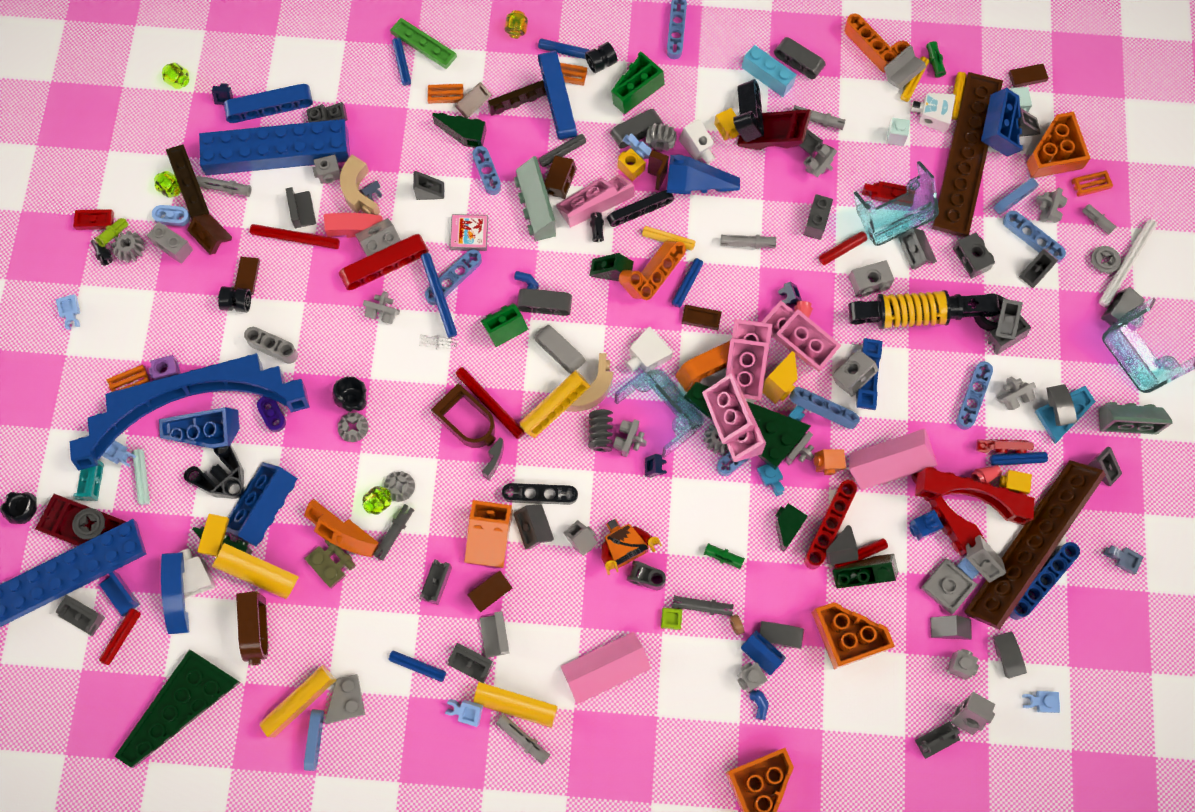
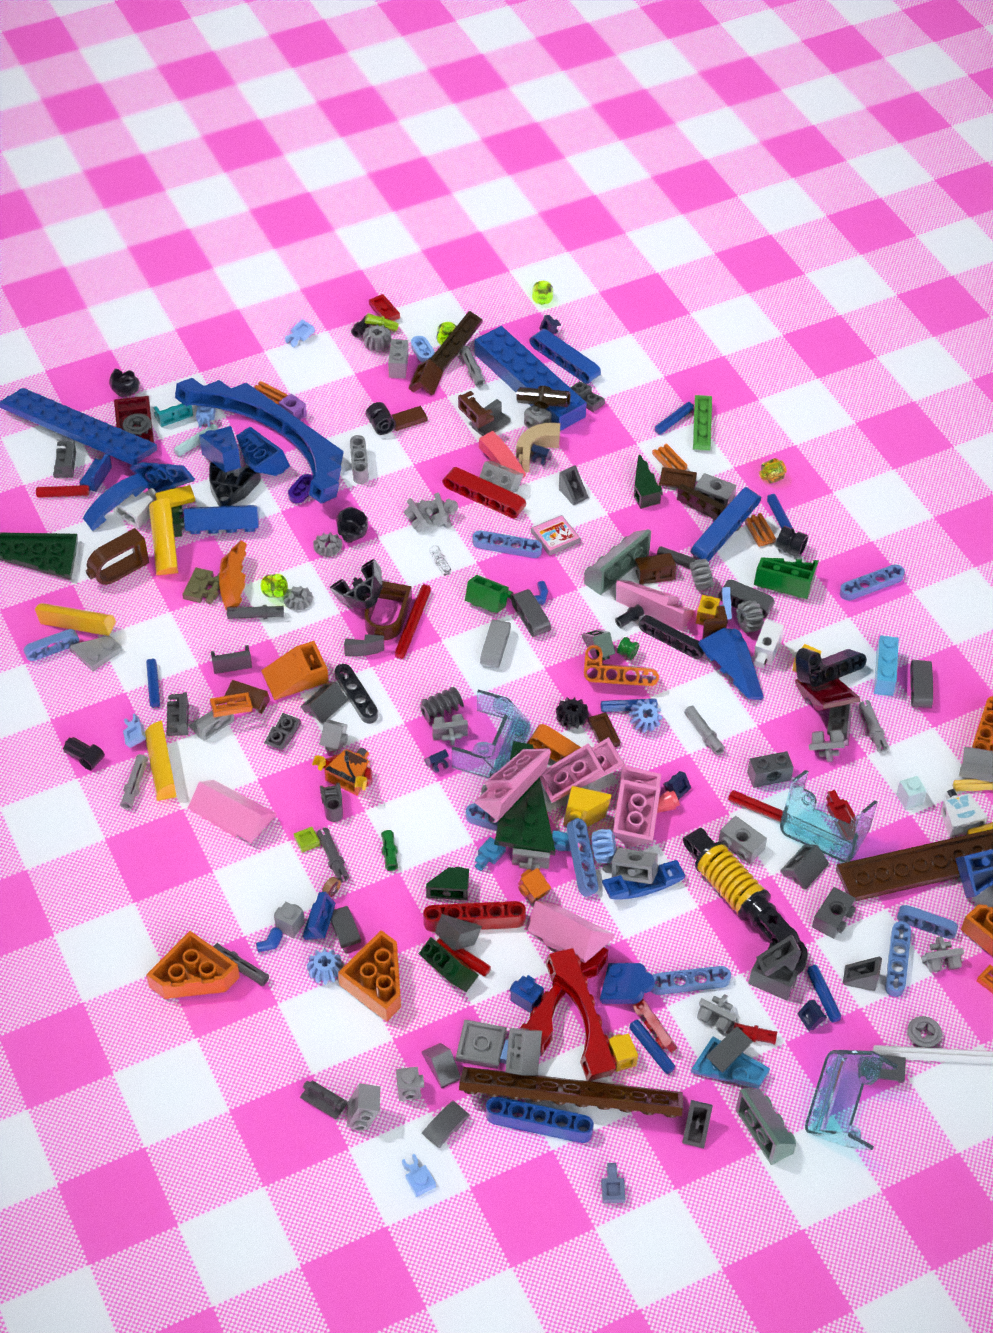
camera: 60 degrees right, 20 degrees down
(177, 535) = (163, 476): none -> blue wedge
(179, 460) = (221, 448): none -> blue wedge
(290, 215) = (474, 410): none -> reddish brown hinge
(294, 236) = (464, 430): red axle -> none
(319, 149) = (543, 397): none -> dark brown piece
(374, 325) = (422, 512): none -> light grey hips
(432, 410) = (362, 589): none -> black connector
(439, 295) = (480, 538): blue axle -> none
(468, 767) = (87, 755): none -> black piece
(487, 163) = (620, 526): medium blue beam -> none
(493, 626) = (232, 706): none -> orange tile
(512, 71) = (716, 489): none -> light grey brick
(545, 579) = (283, 732): none -> dark grey slope
(554, 404) = (439, 657): yellow brick -> none
(594, 146) = (701, 574): none -> light grey gear
(598, 390) = (468, 683): tan arch -> none
(631, 248) = (628, 648): none -> green wheel
(648, 352) = (539, 704): white torso -> none
(663, 236) = (658, 665): yellow axle -> none
(672, 324) = (572, 713): none -> black gear
(711, 277) = (650, 721): none -> light blue gear
(750, 754) = (245, 967): none -> dark grey pin
(817, 679) = (328, 959): none -> light blue gear
(823, 385) = (604, 845): none -> light blue gear
(958, 444) = (626, 983): none -> blue plate
(986, 474) = (613, 1023): coral cone -> none
(1042, 308) = (824, 993): none -> blue axle
(1047, 377) = (758, 1034): none -> red pin
(1054, 327) = (811, 1015): none -> dark blue tile
(1099, 219) = (964, 1007): light grey axle -> none

